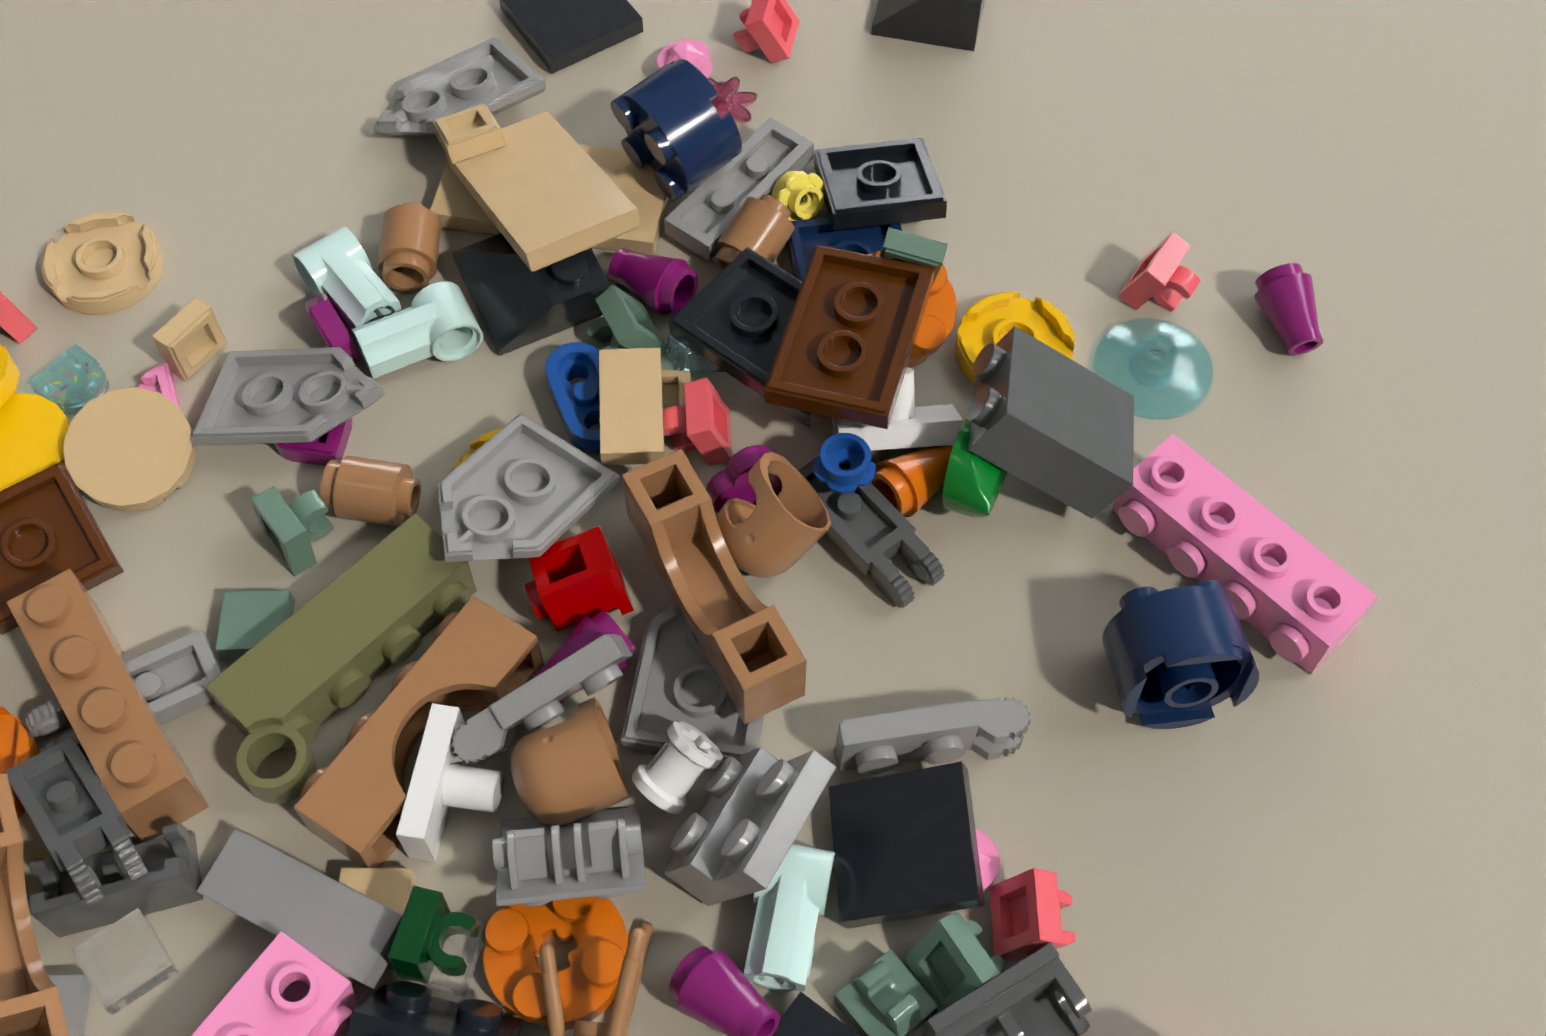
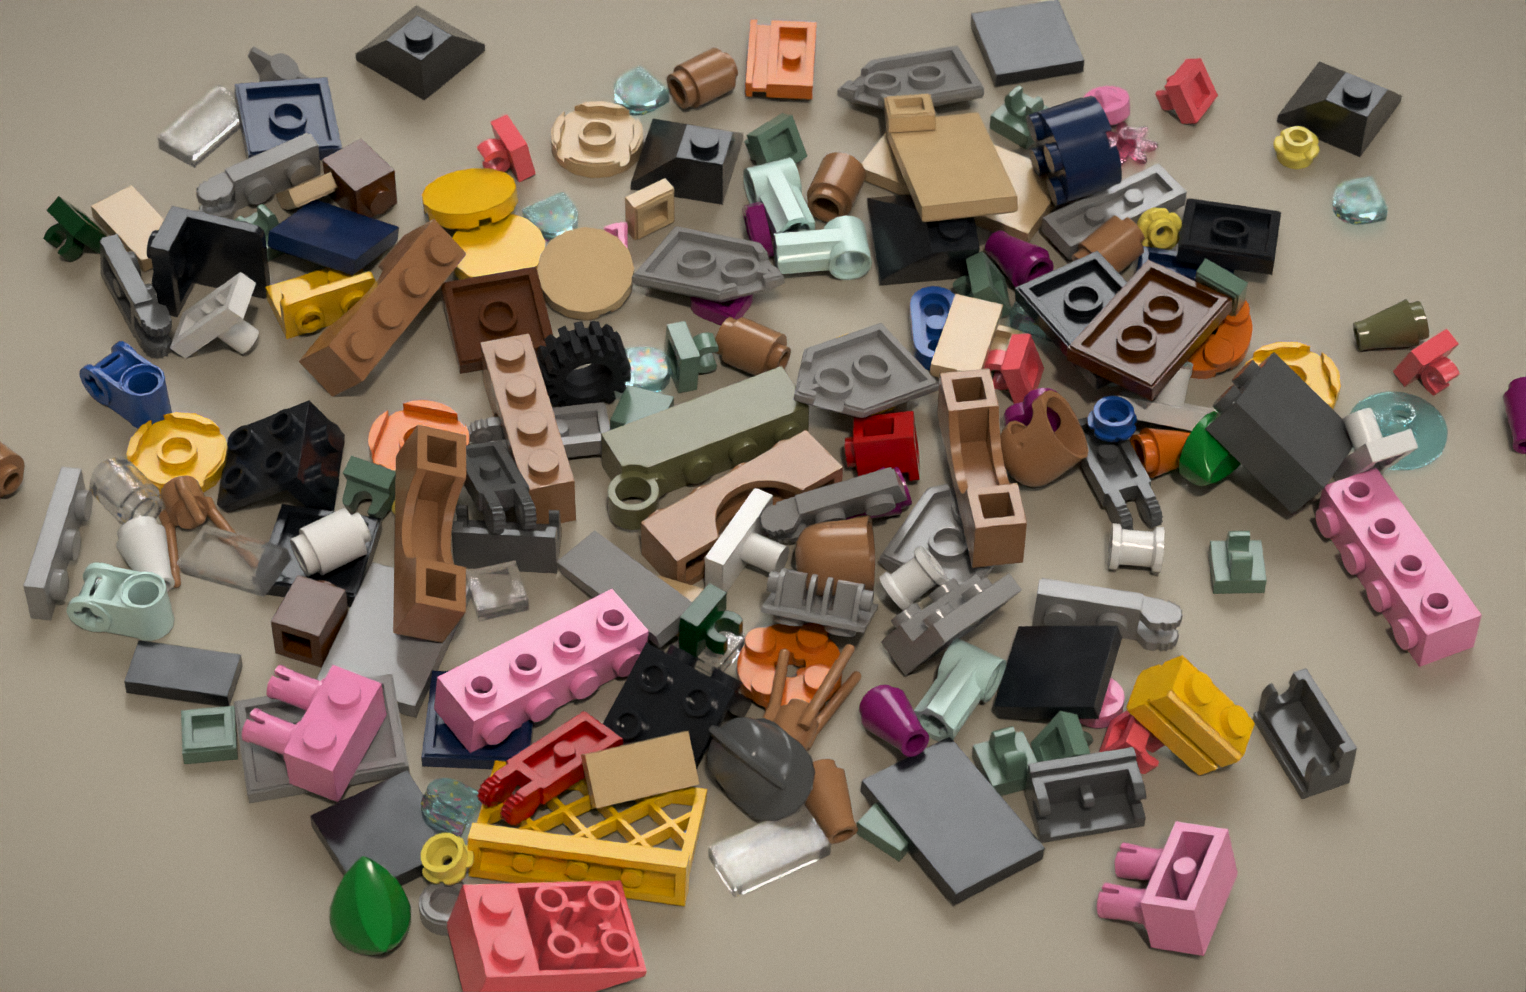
camera: 20 degrees right, 10 degrees down
(140, 189) = (640, 92): none -> clear light blue tile
(155, 589) = (580, 347): none -> black tyre
(210, 153) = (702, 78): none -> medium nougat brick
(222, 260) = (690, 157): none -> black slope
(241, 559) = (649, 368): none -> clear light blue tile
(297, 105) = (781, 59): none -> plate
(321, 209) = (776, 141): none -> sand green tile
(589, 103) = (1010, 118): none -> sand green tile
(906, 58) = (1296, 147): none -> light yellow plate
(930, 625) = (1136, 548): none -> white bush
(998, 103) = (1359, 202): none -> clear light blue tile
(1053, 607) = (1237, 564): none -> sand green tile
(1104, 241) = (1395, 326): none -> olive cone
(1104, 869) = (1190, 715): none -> yellow brick
(1162, 417) = (1371, 447): none -> white tile
(1178, 654) = (1310, 610): dark blue brick -> none
(1237, 832) = (1306, 736): none -> dark grey hinge

